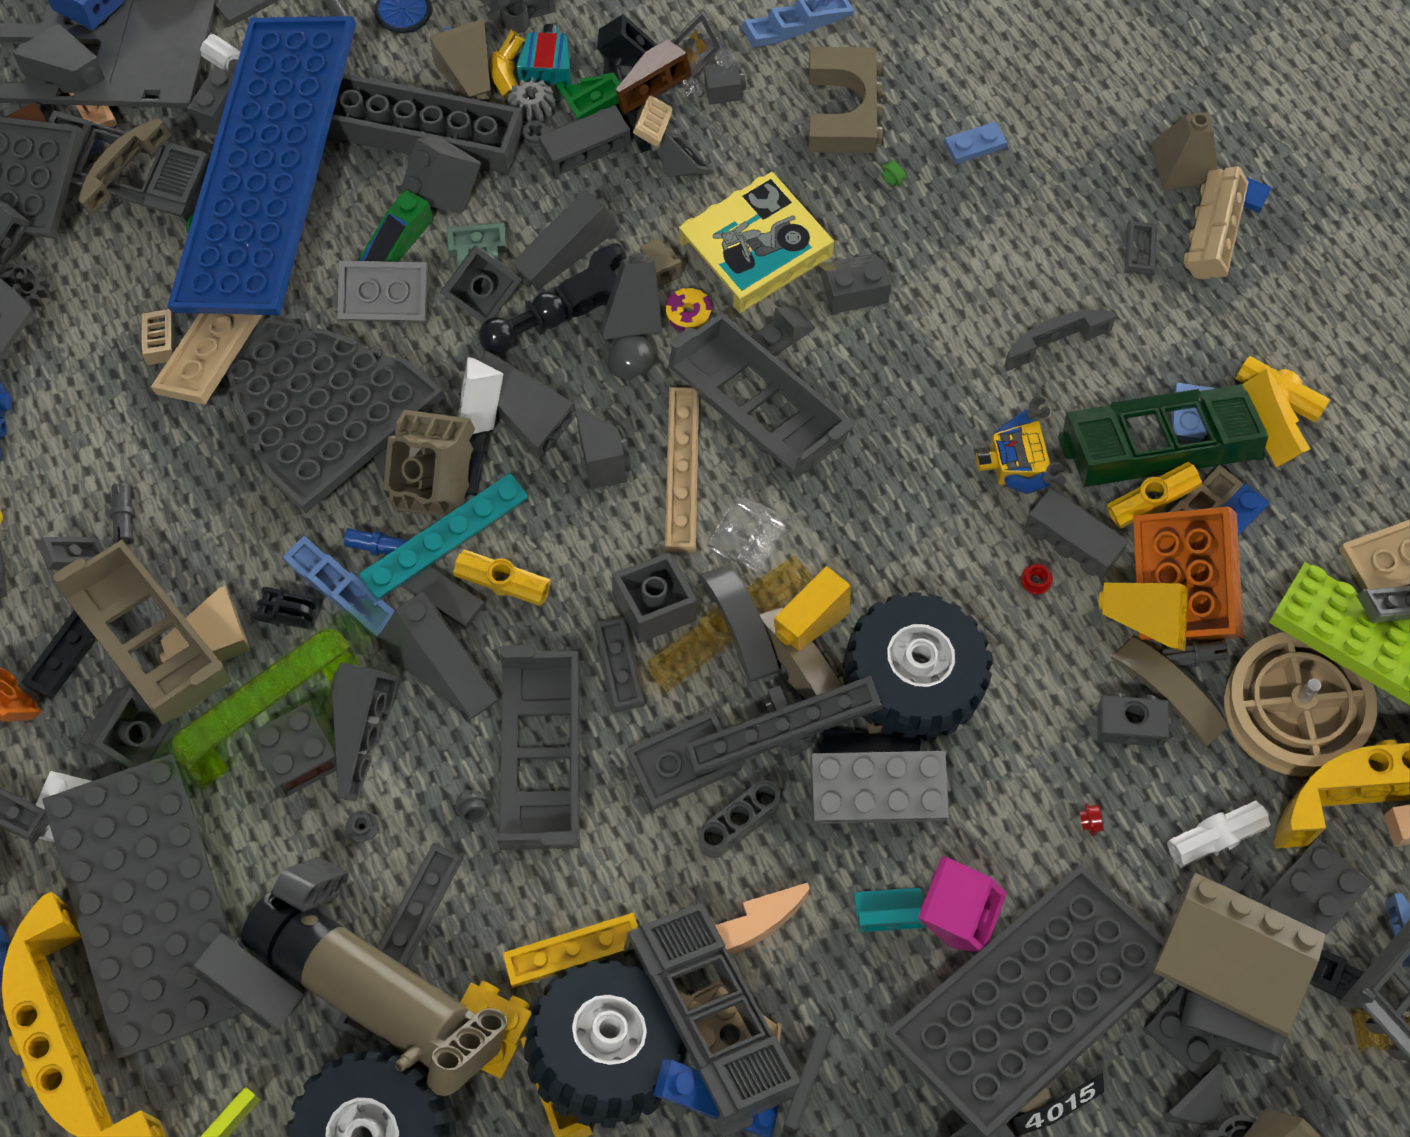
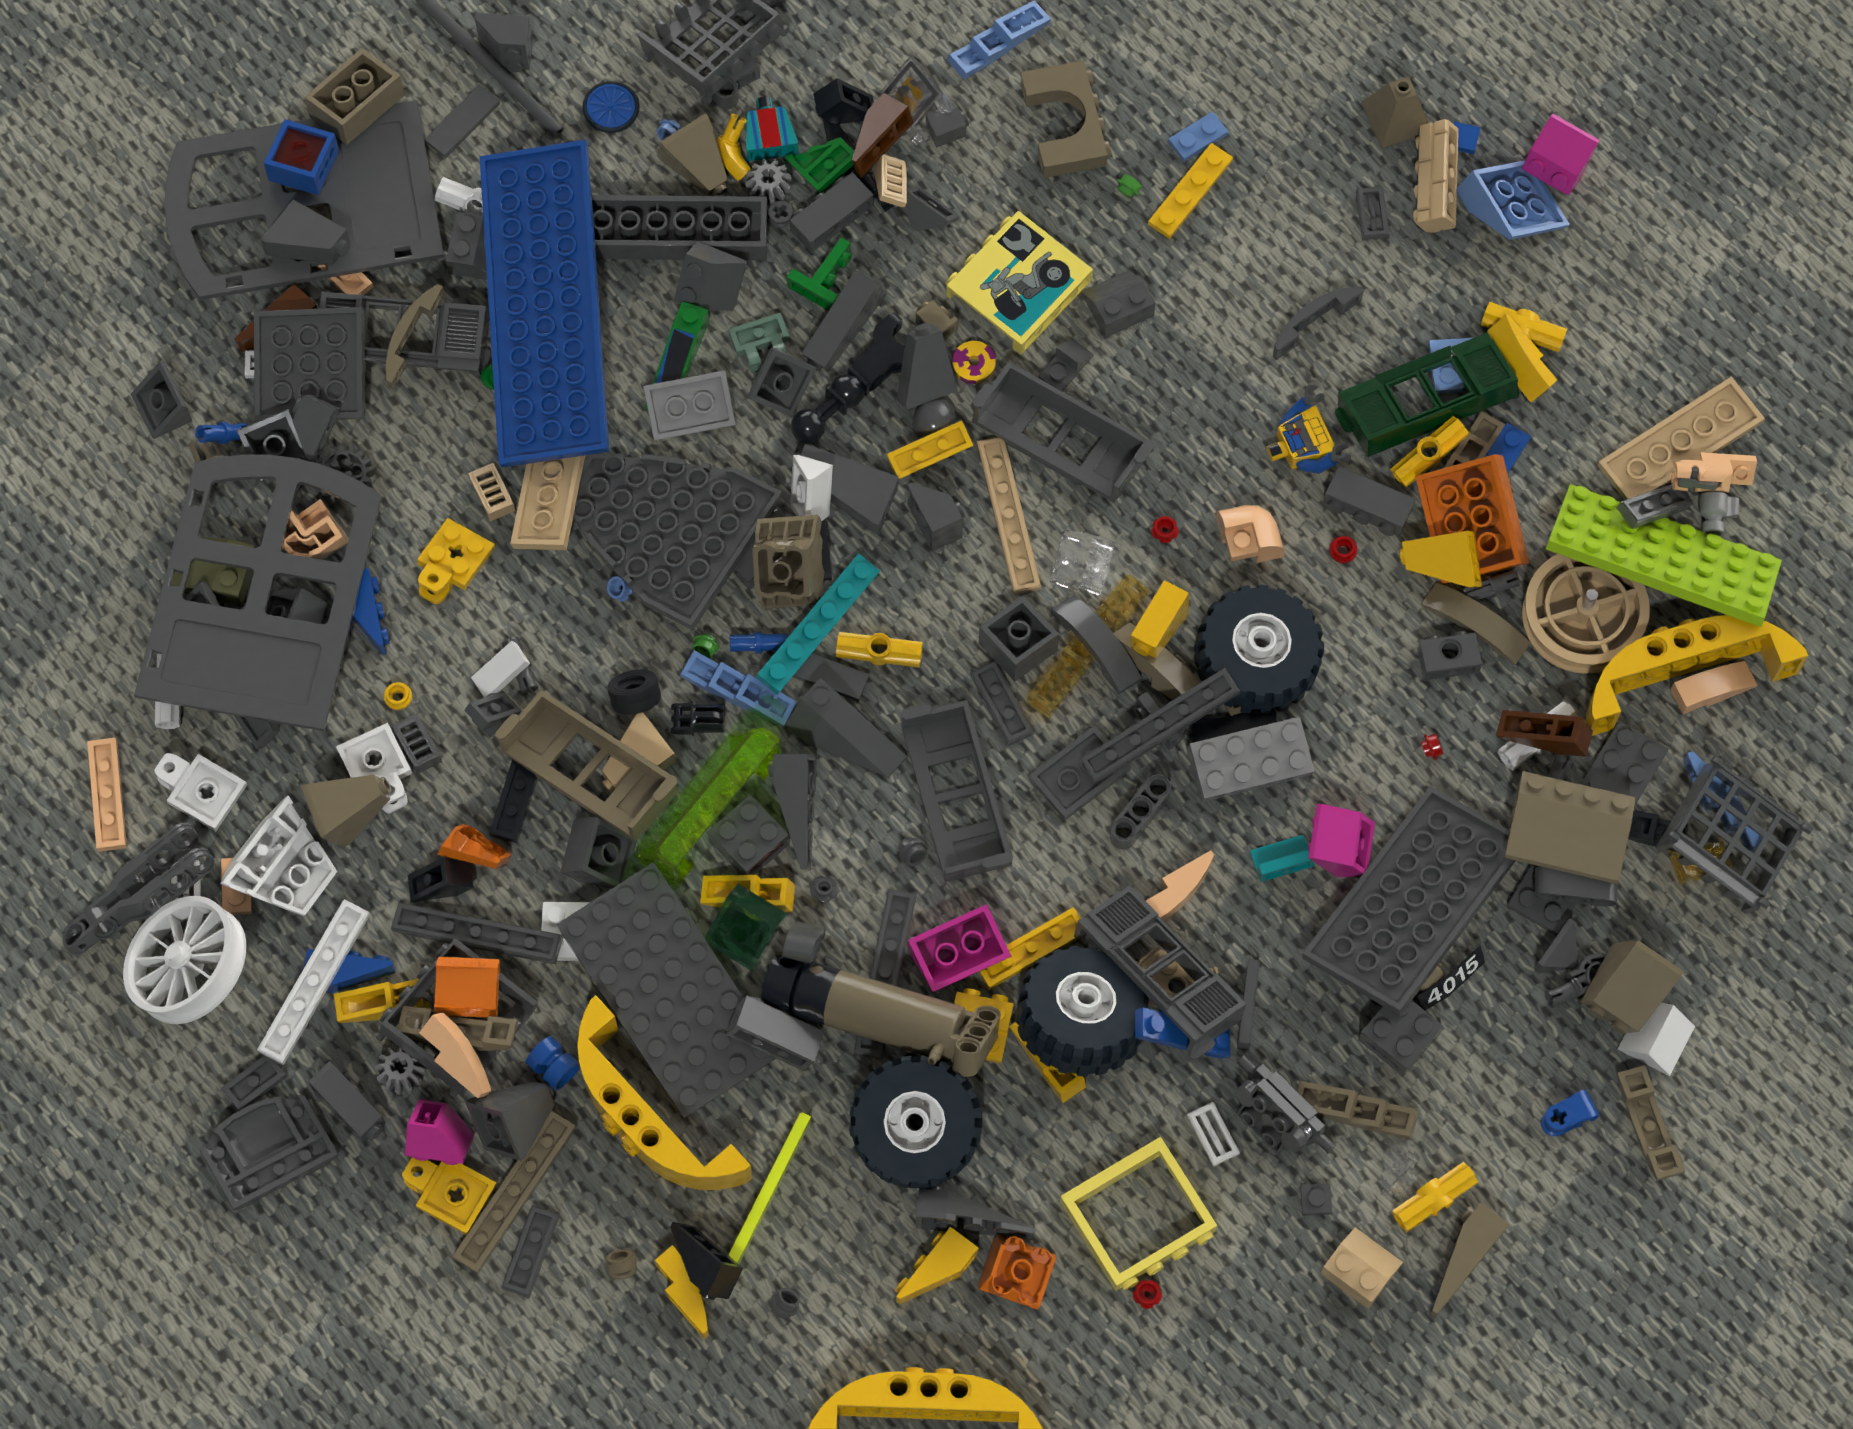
camera: 15 degrees left, 5 degrees up
(79, 400) = (441, 570): none -> yellow plate
(97, 512) = (500, 670): none -> white tile
(225, 565) = (634, 691): none -> black tyre
(248, 458) = (614, 589): none -> medium blue plate
(252, 850) = (745, 927): none -> clear green brick
(277, 812) = (774, 890): none -> yellow slope
(321, 531) = (705, 642): none -> bright green plate
(486, 932) = (958, 948): none -> dark pink slope
(557, 199) = (818, 287): none -> green bracket
(615, 384) = (929, 450): none -> yellow plate
(849, 511) = (1169, 524): none -> red plate
(937, 539) = (1250, 533): none -> light nougat brick
(955, 191) = (1190, 190): none -> yellow plate
(1231, 832) = (1546, 732): none -> reddish brown slope
(1291, 260) = (1511, 201): none -> medium blue slope
(1354, 224) = (1560, 154): none -> dark pink slope

